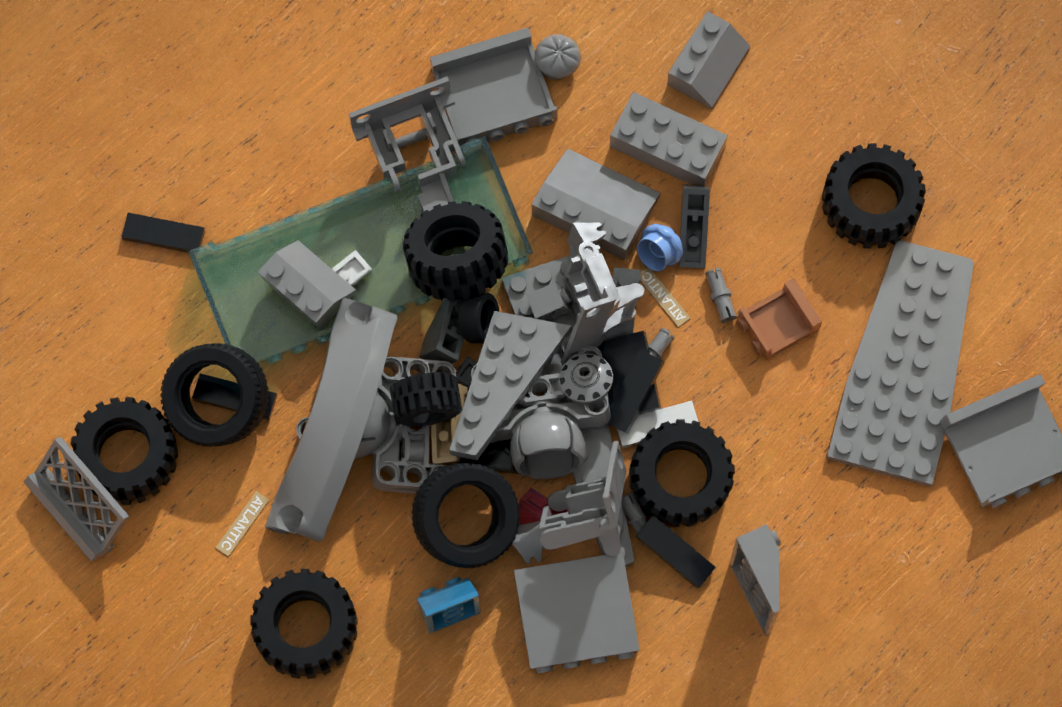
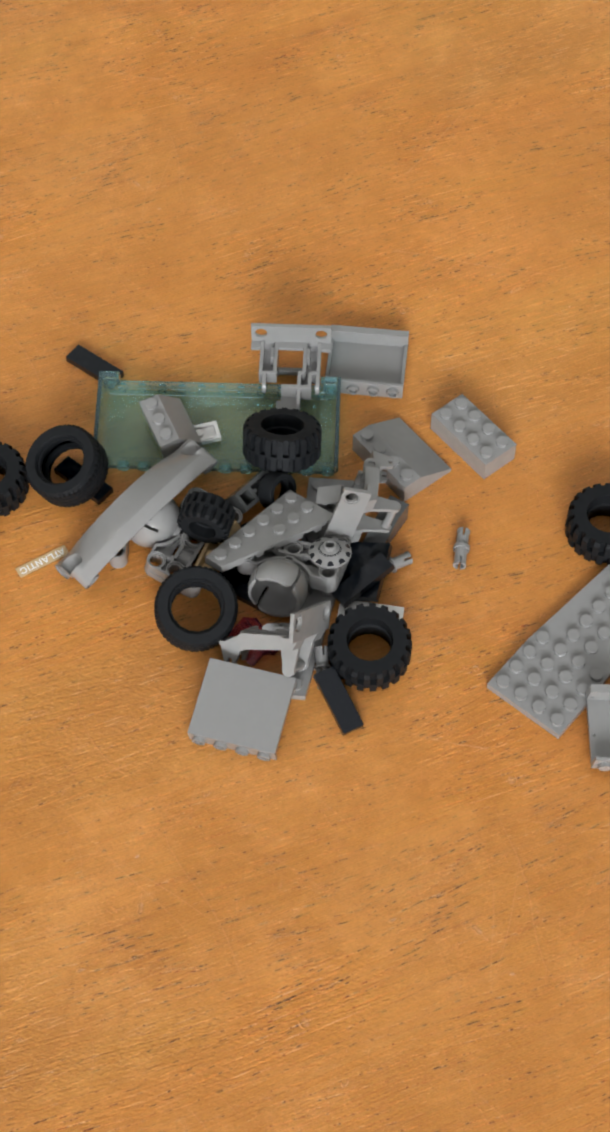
camera: 25 degrees right, 15 degrees down
(297, 588) = (36, 613): black tyre -> none
(448, 604) = (151, 667): dark azure slope -> none
(557, 56) = (421, 358): light grey piece -> none
(659, 247) = (431, 498): light blue piece -> none
(663, 297) = (419, 535): tan sticker -> none
(694, 225) = (464, 495): dark grey slope -> none
(708, 60) = (527, 398): light grey slope -> none
(757, 571) = (391, 728): light grey slope -> none
(779, 320) = (496, 581): nougat panel -> none

